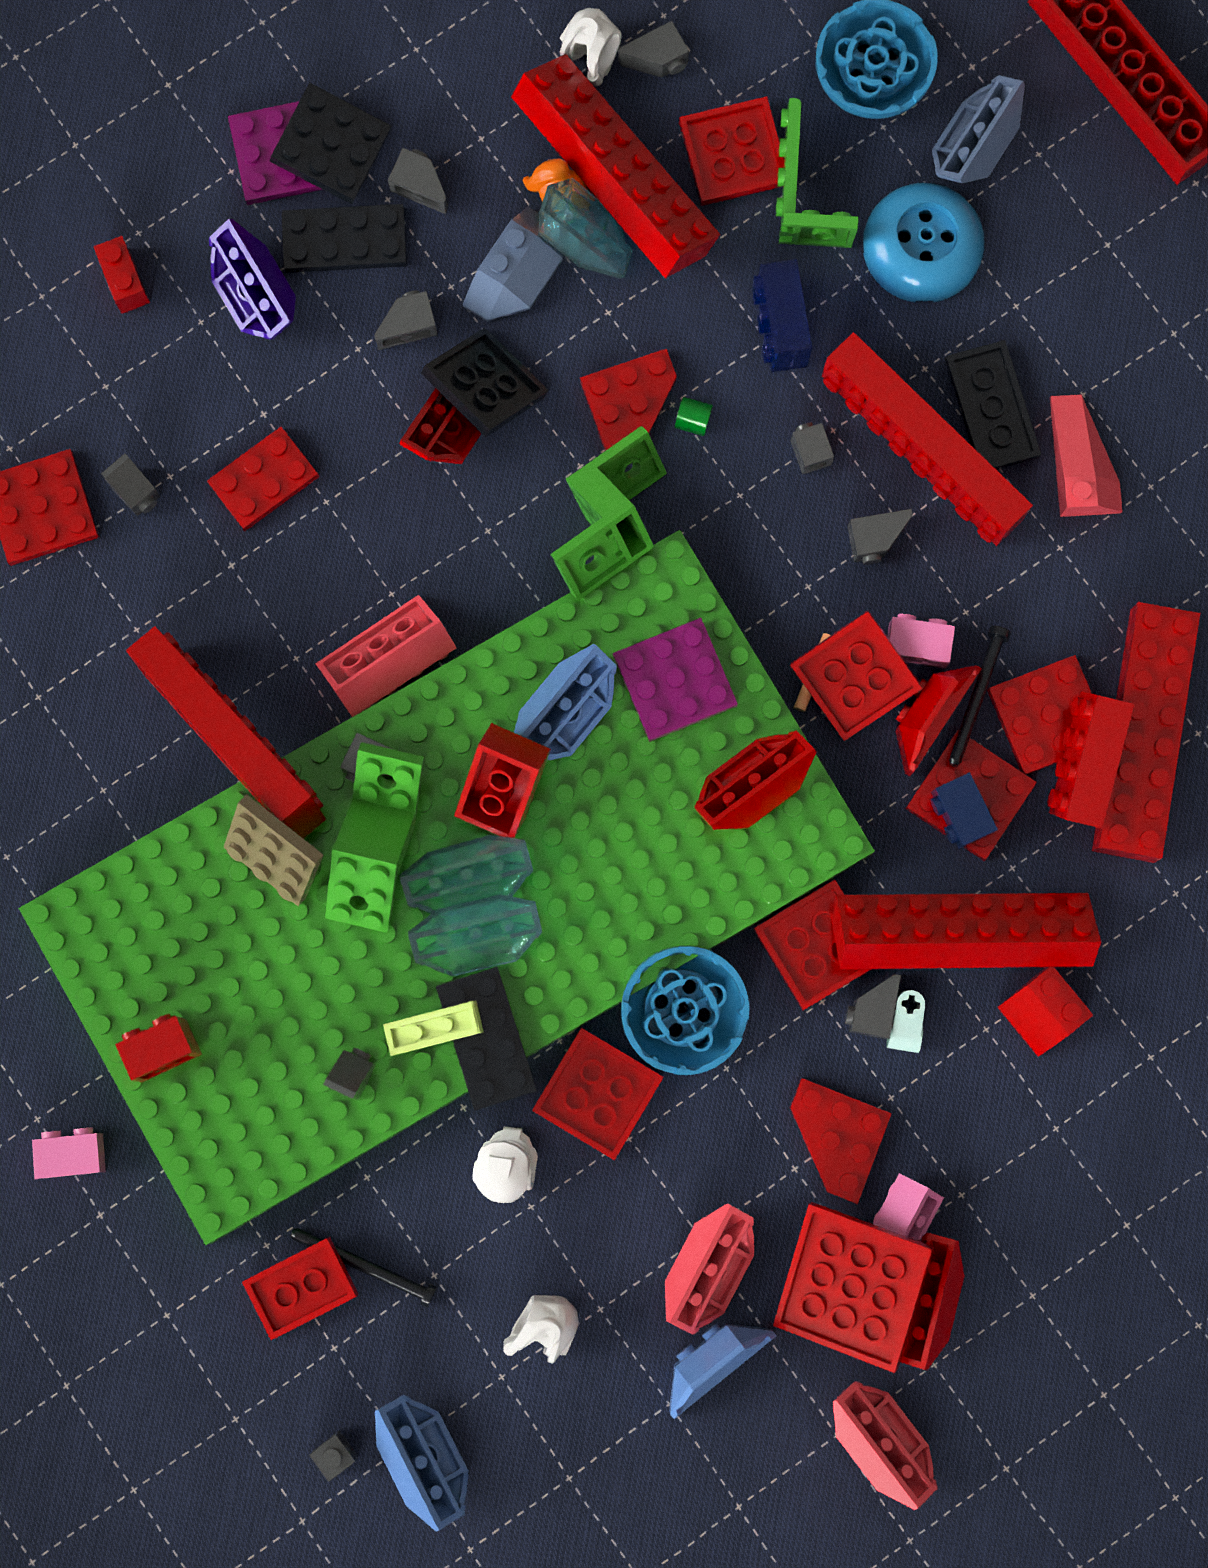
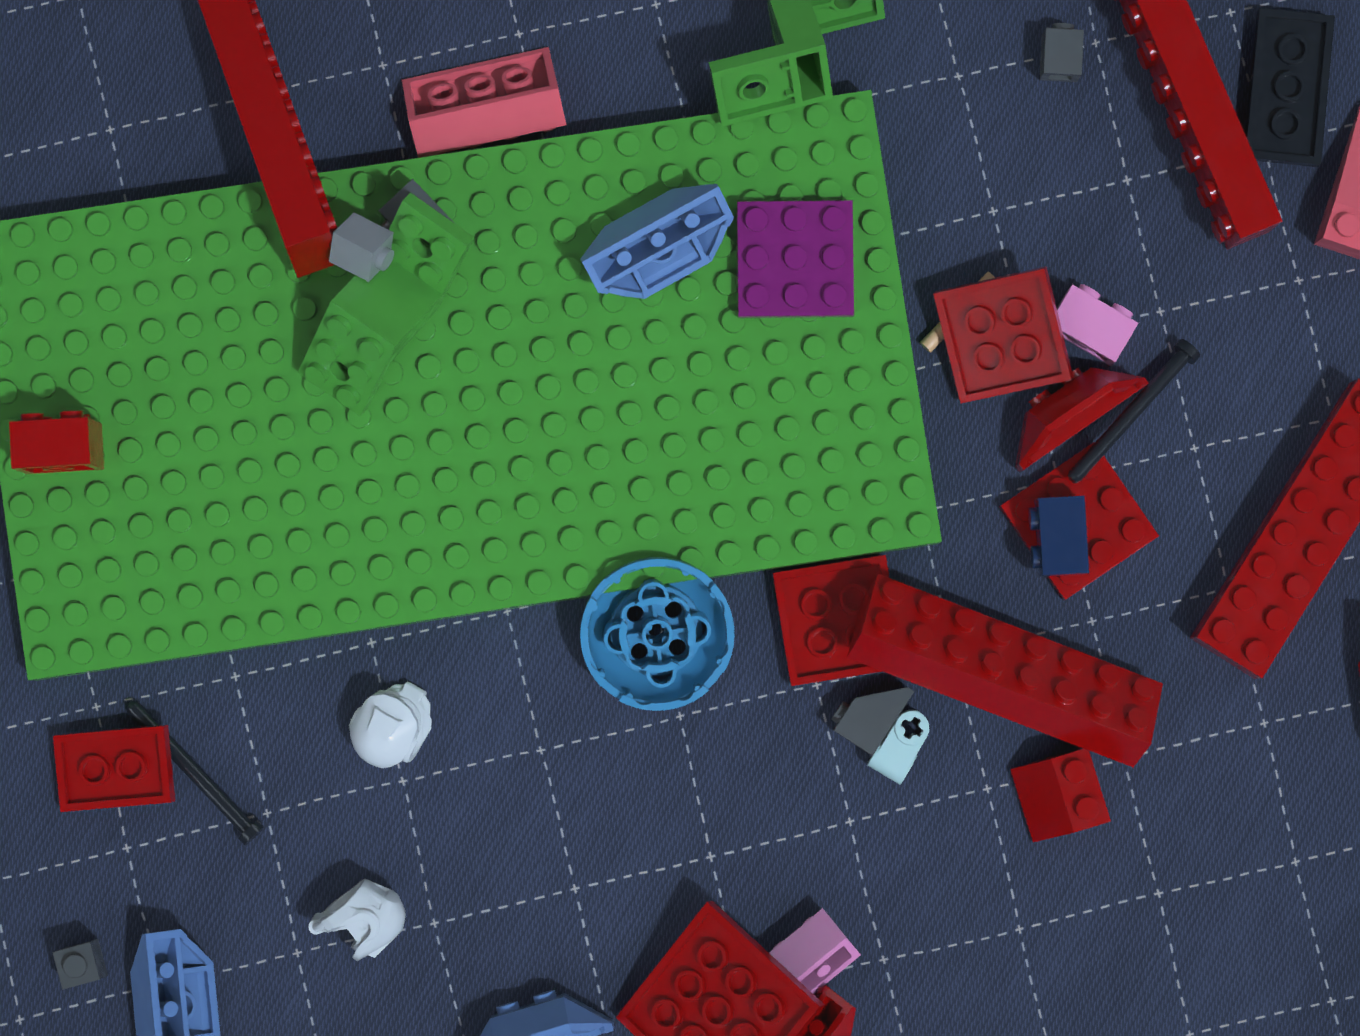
camera: 25 degrees right, 5 degrees up
(272, 850) = (266, 275): dark tan plate -> none
(339, 799) = (361, 247): none -> light grey brick
(350, 1073) = (257, 557): dark grey slope -> none
(433, 1028) = (368, 542): yellowish green tile -> none
(466, 872) = (472, 388): clear light blue wedge -> none
(475, 934) = (455, 457): clear light blue wedge -> none
(492, 1060) = (423, 577): black plate -> none
(502, 781) = (551, 299): red brick -> none
(597, 1093) = (525, 687): red plate -> none
(709, 1268) = (570, 928): coral wedge -> none
(755, 781) = (836, 410): red wedge -> none
(839, 1136) = (774, 841): red plate -> none
(875, 534) = (1093, 183): dark grey slope -> none
(1038, 711) = (1205, 466): red plate -> none
(1090, 759) = (1227, 534): red brick -> none

